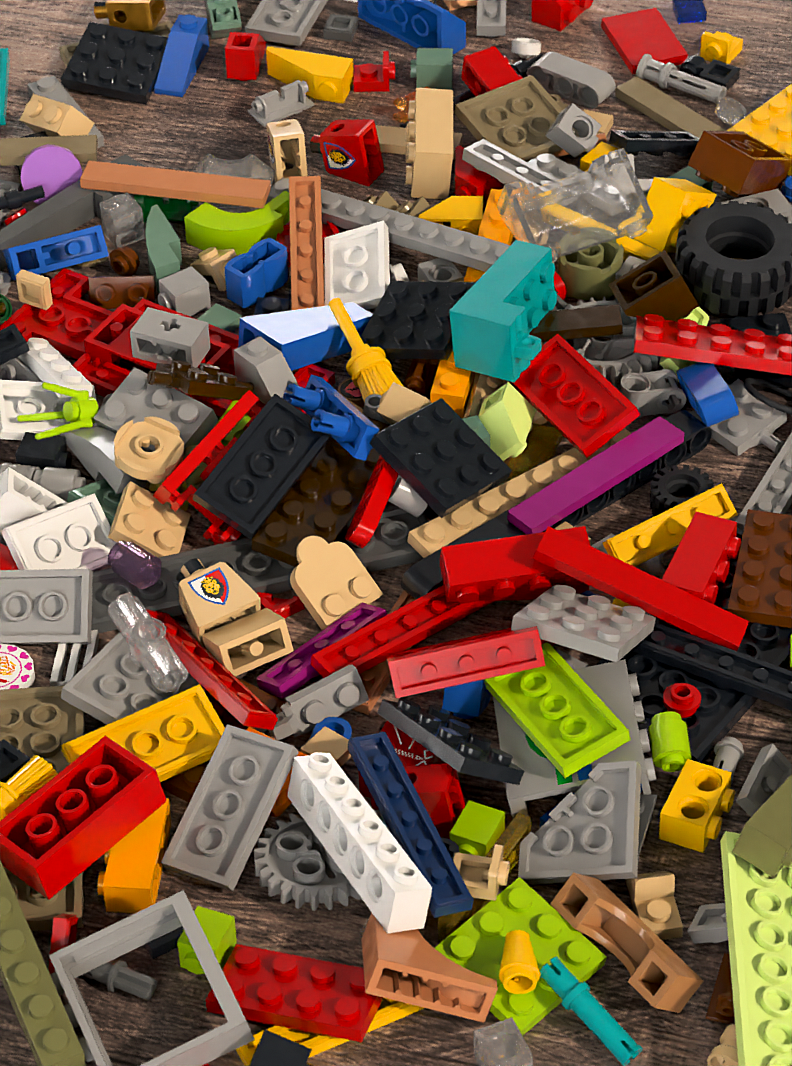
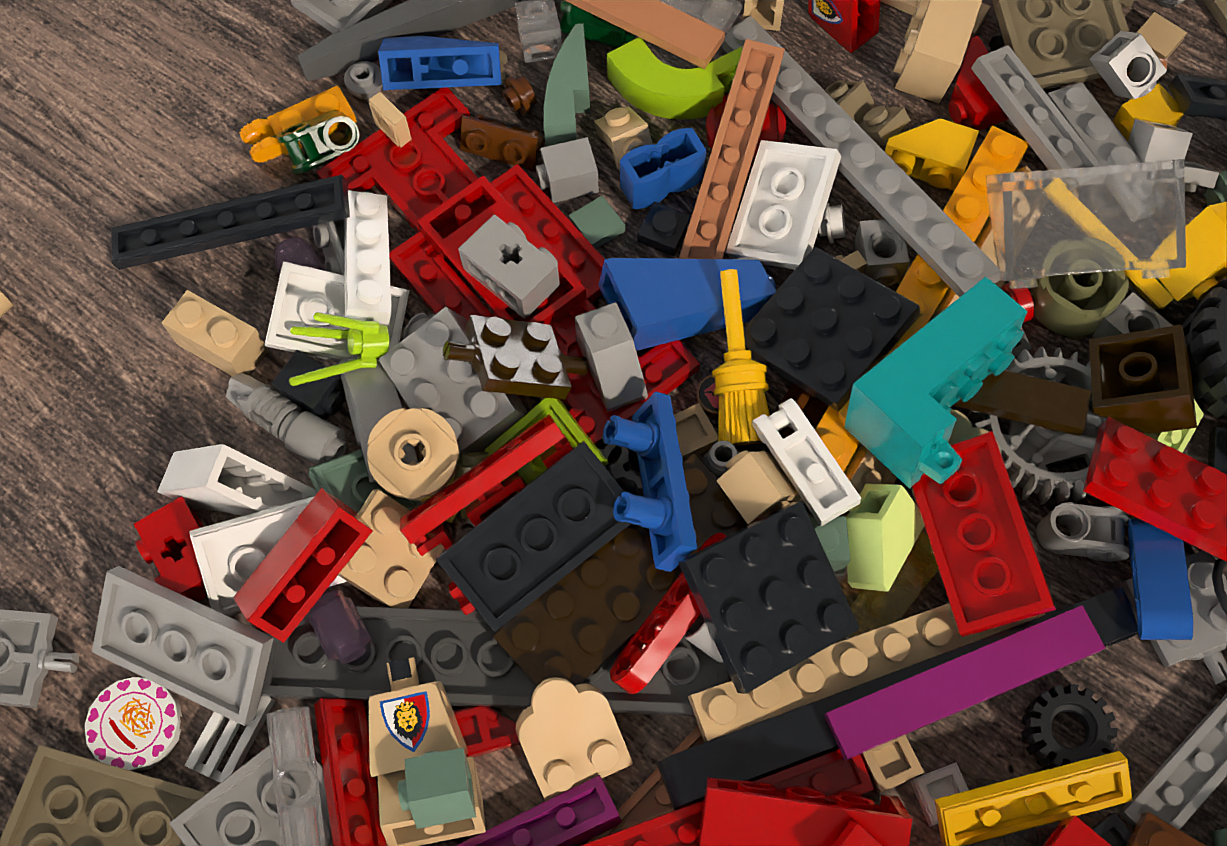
camera: 20 degrees right, 25 degrees up
(96, 523) = (302, 565): none -> red brick
(253, 608) = (437, 788): none -> sand green brick
(436, 383) = (807, 463): none -> white plate

